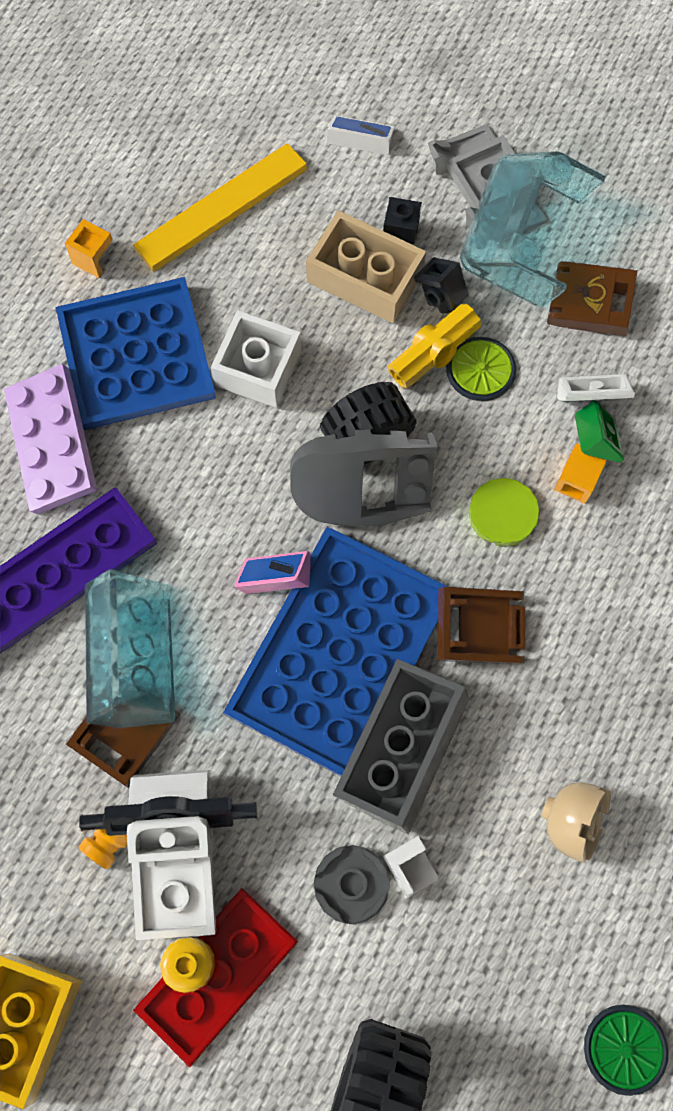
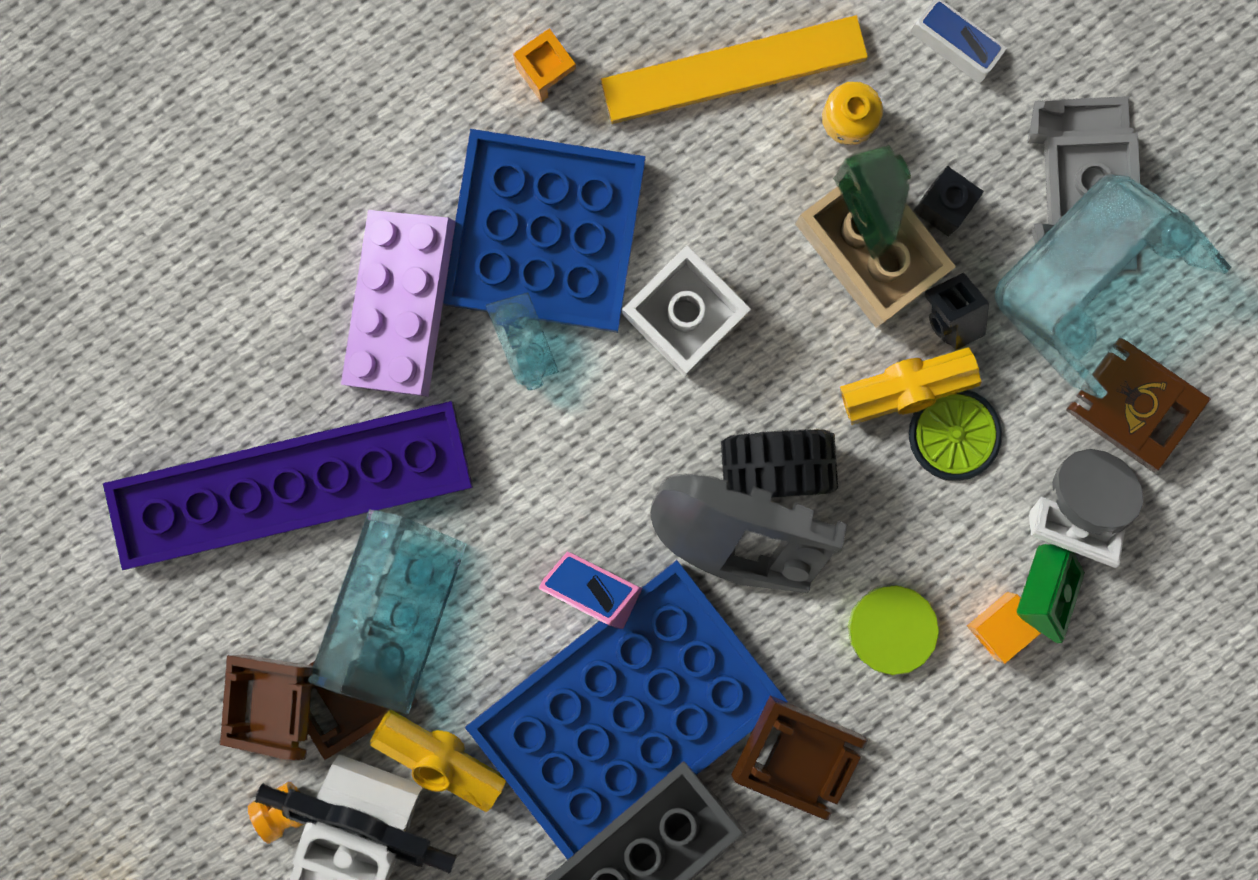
camera: 25 degrees right, 15 degrees up
(71, 755) = (277, 709): none -> reddish brown container
(149, 424) = (522, 340): none -> clear light blue hinge
(213, 745) = (438, 760): none -> yellow piece
(312, 196) = (852, 113): none -> yellow head
(346, 221) = (875, 195): none -> clear green slope
(595, 358) = (1098, 491): none -> dark grey tile

